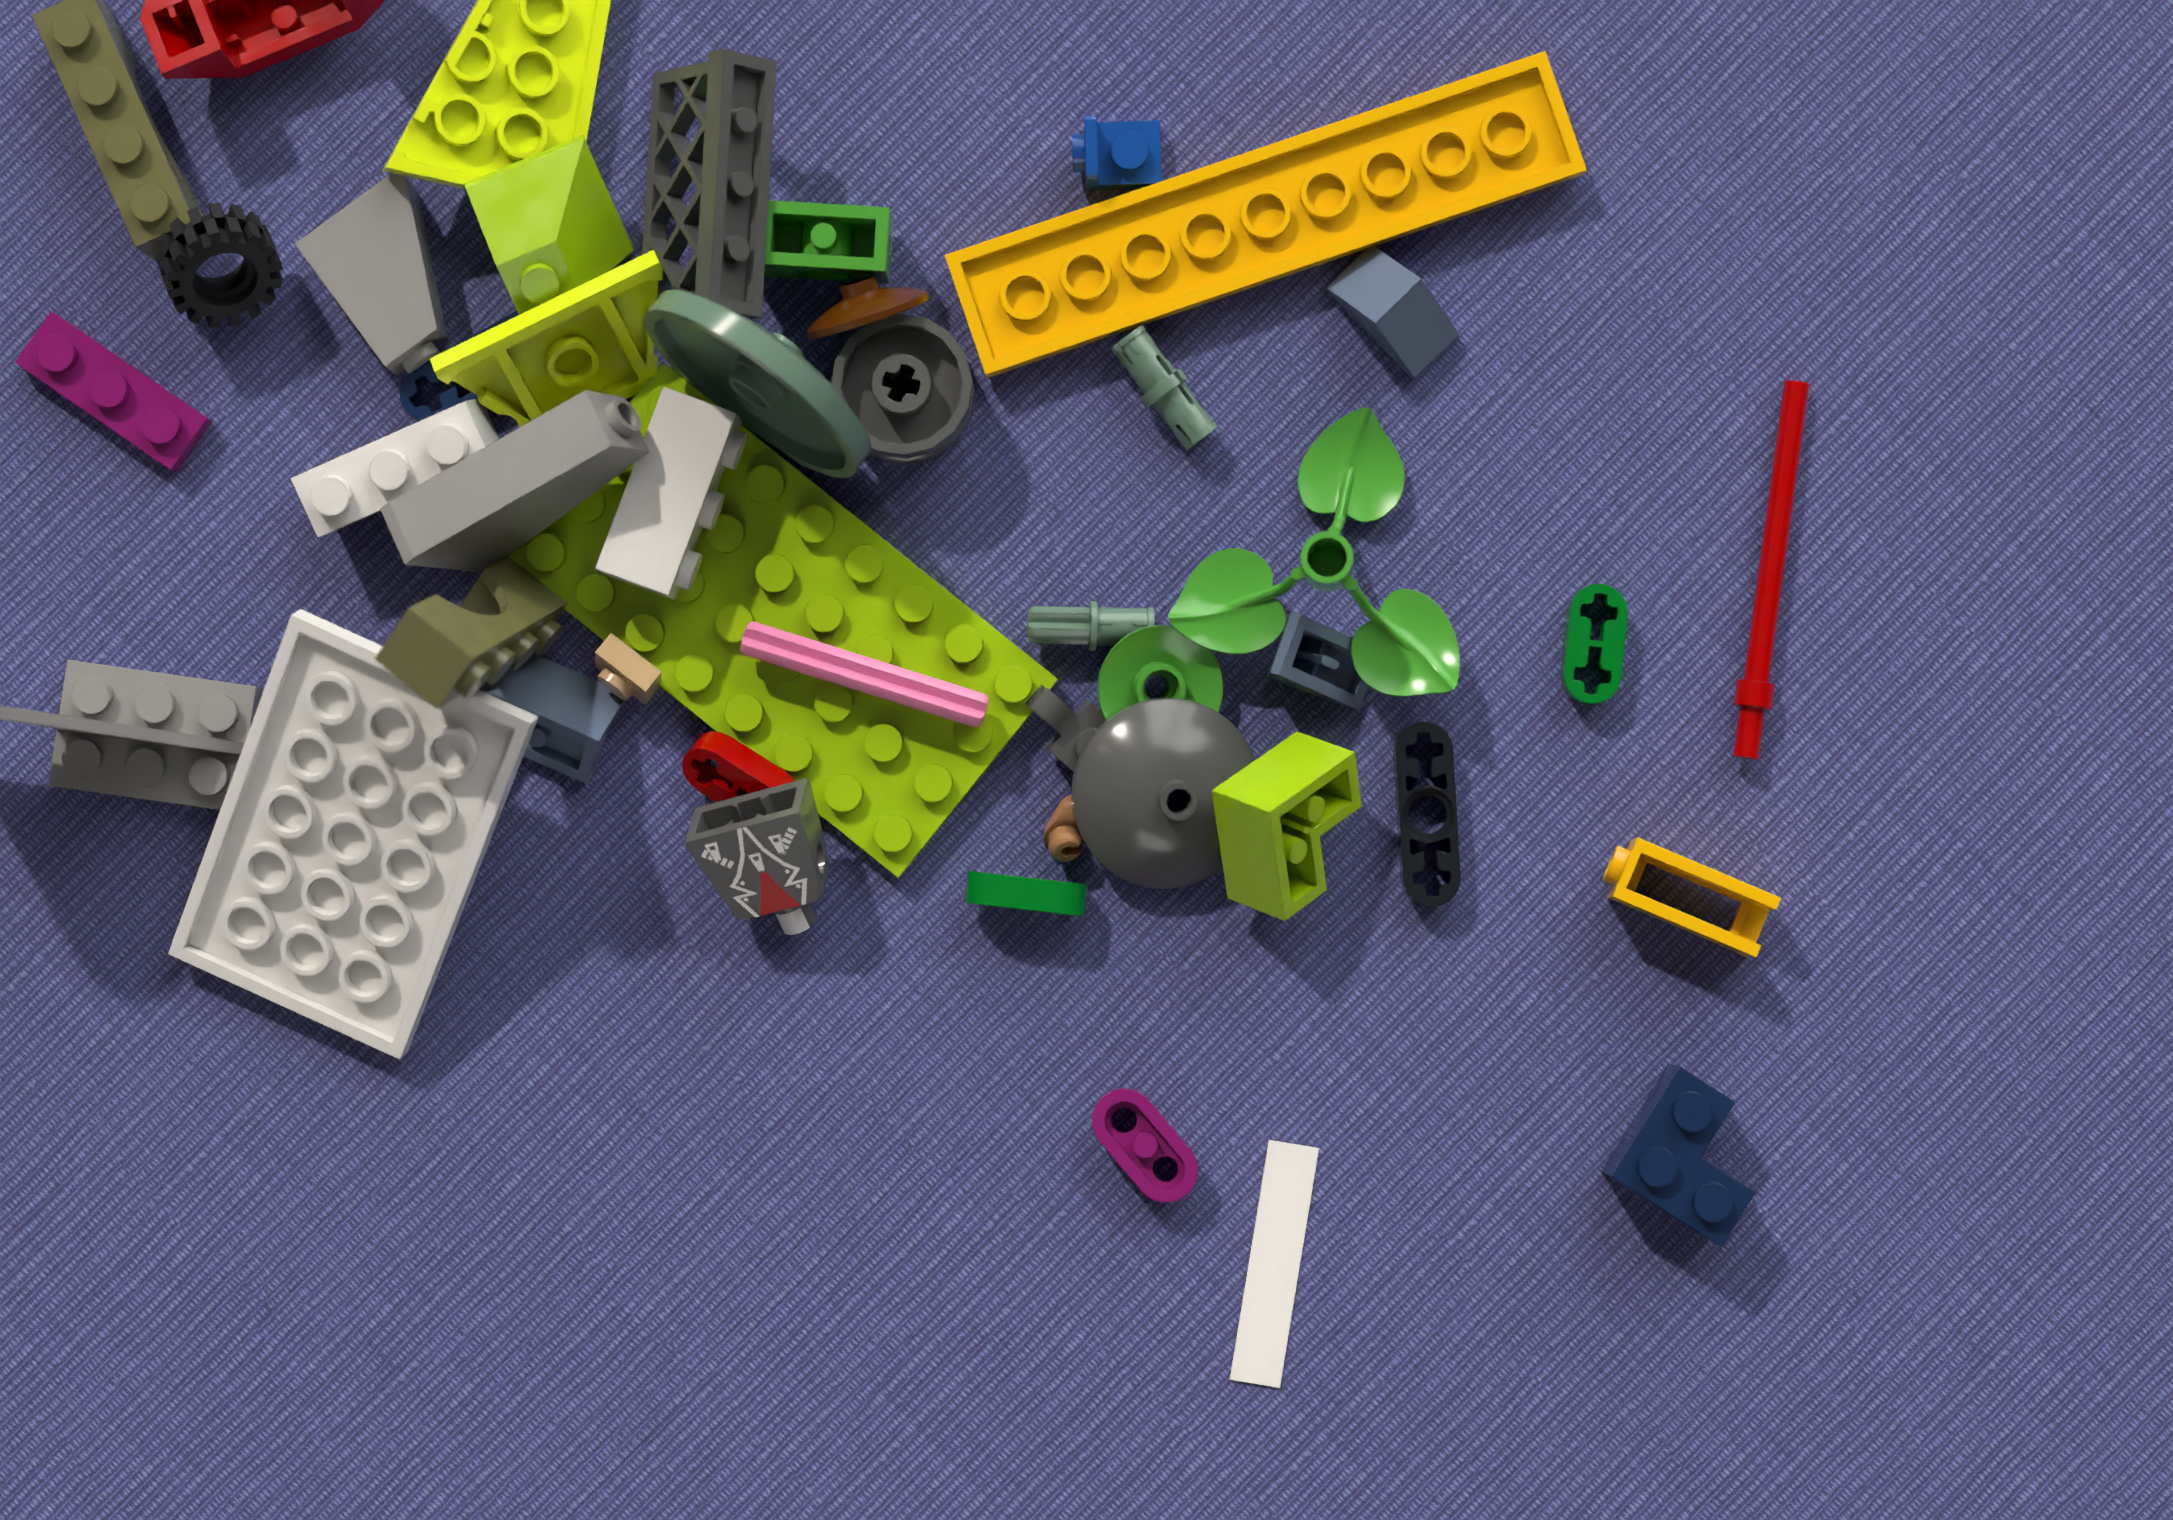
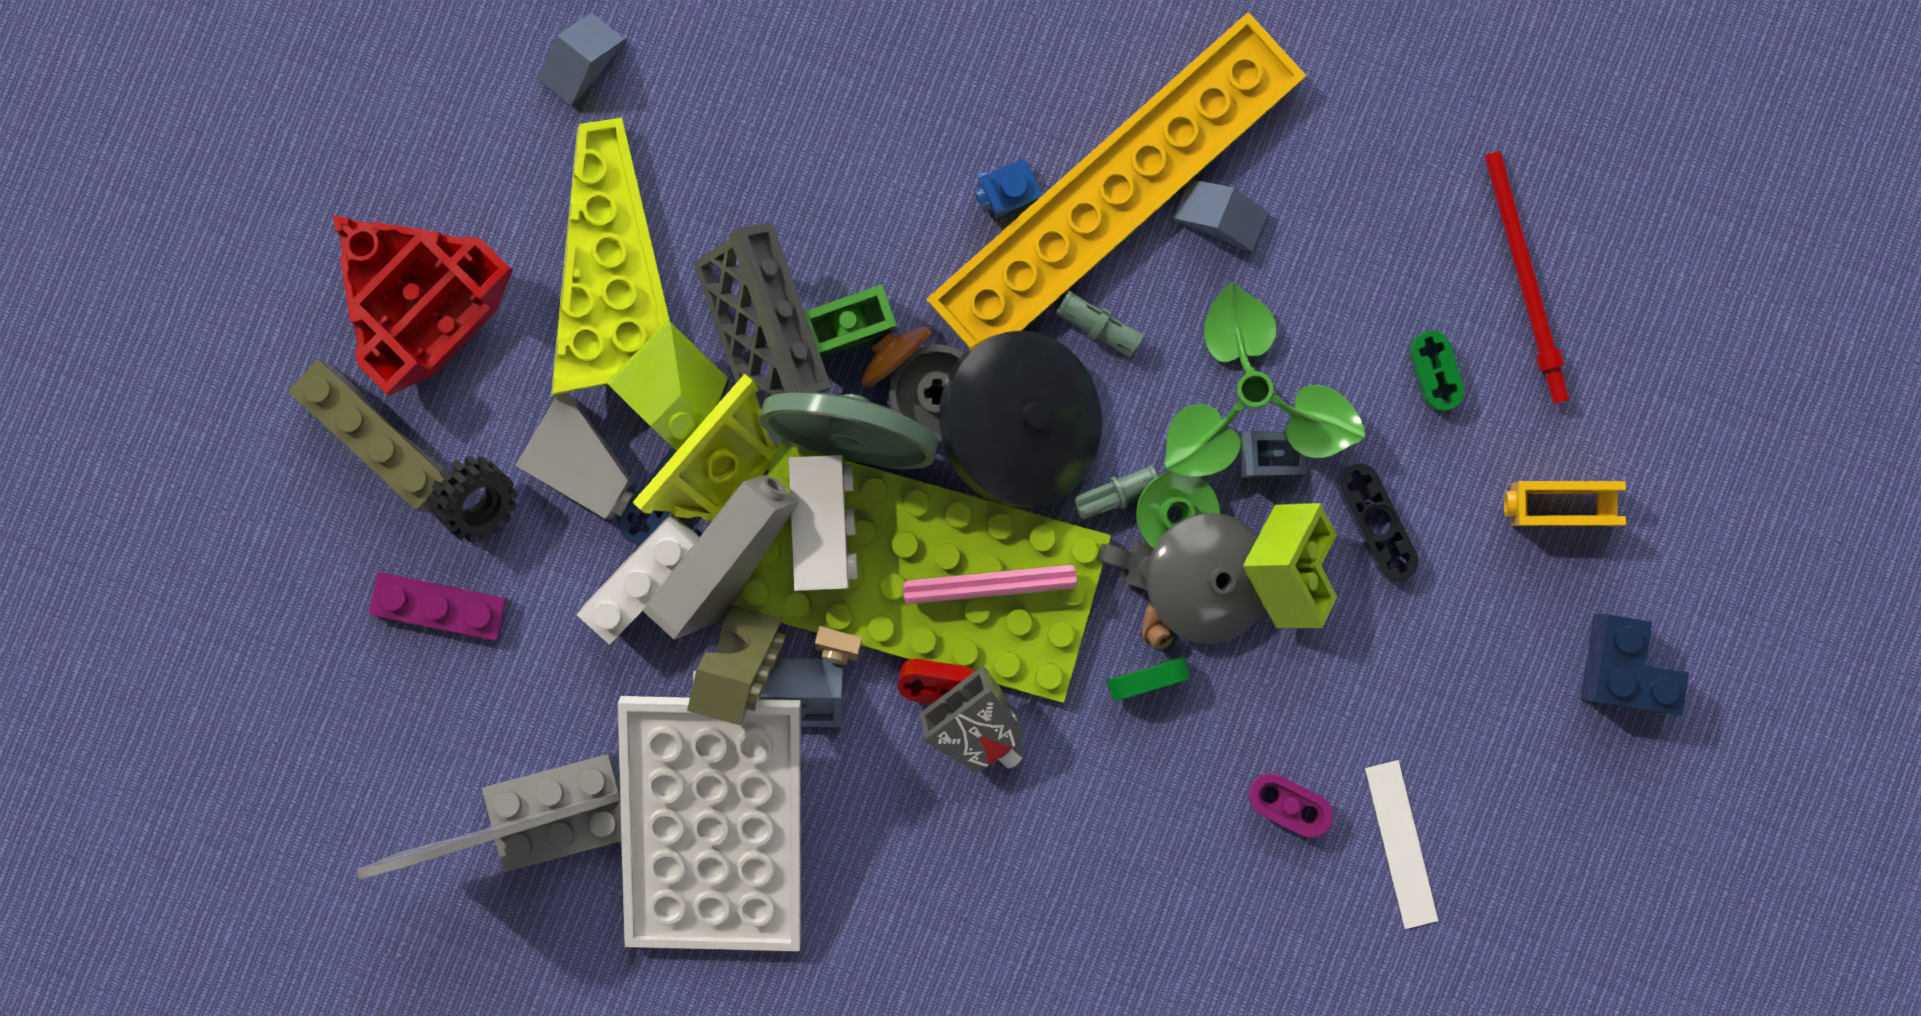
camera: 20 degrees left, 0 degrees up
(1000, 468) = (1020, 419): none -> black dish

